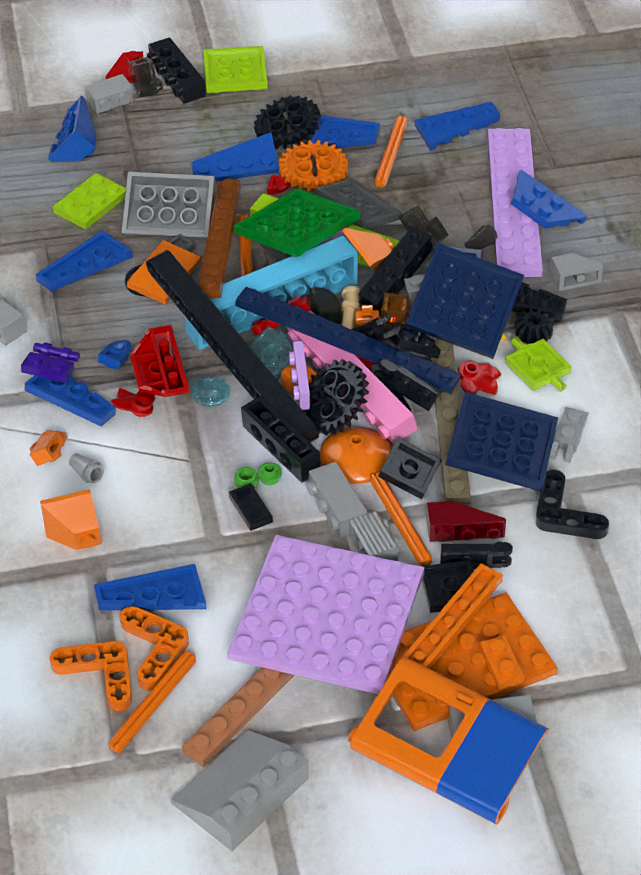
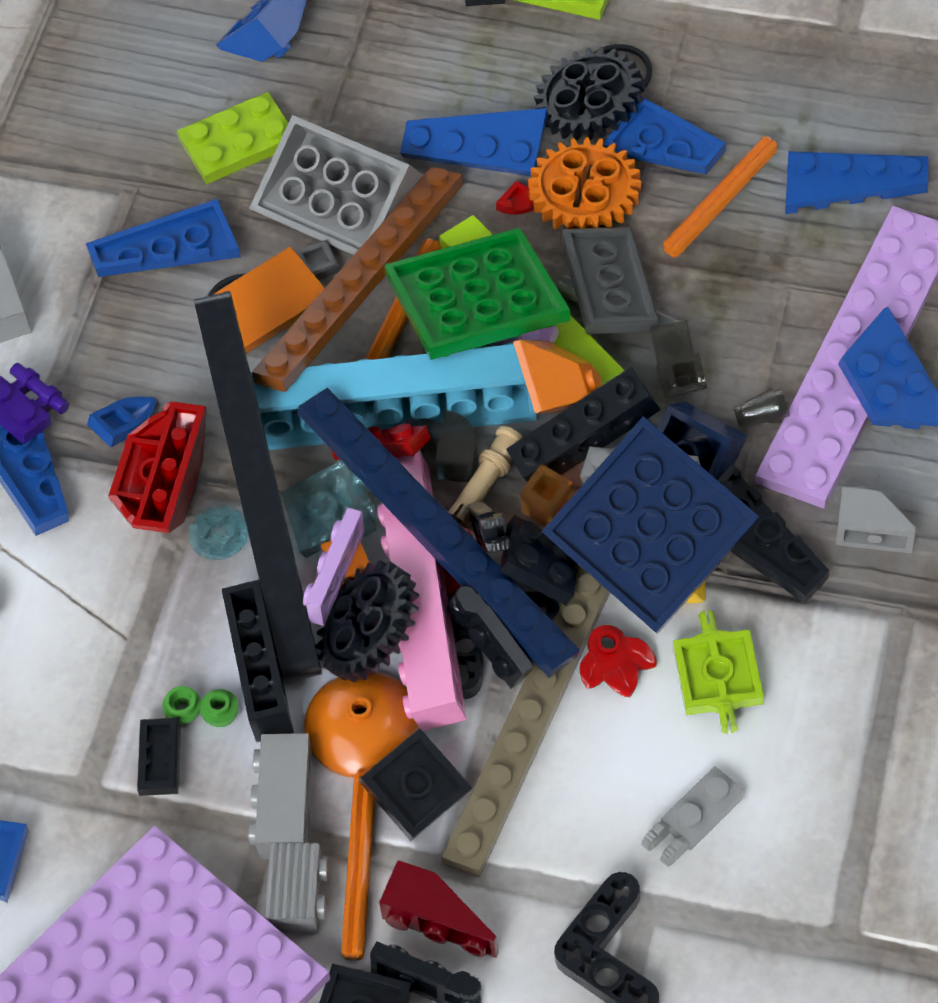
camera: 30 degrees right, 10 degrees up
(139, 404) = (97, 511): red plate -> none
(366, 314) = (503, 492): orange gear -> none
(502, 441) = (576, 793): dark blue plate -> none
(533, 327) = (748, 603): black gear -> none

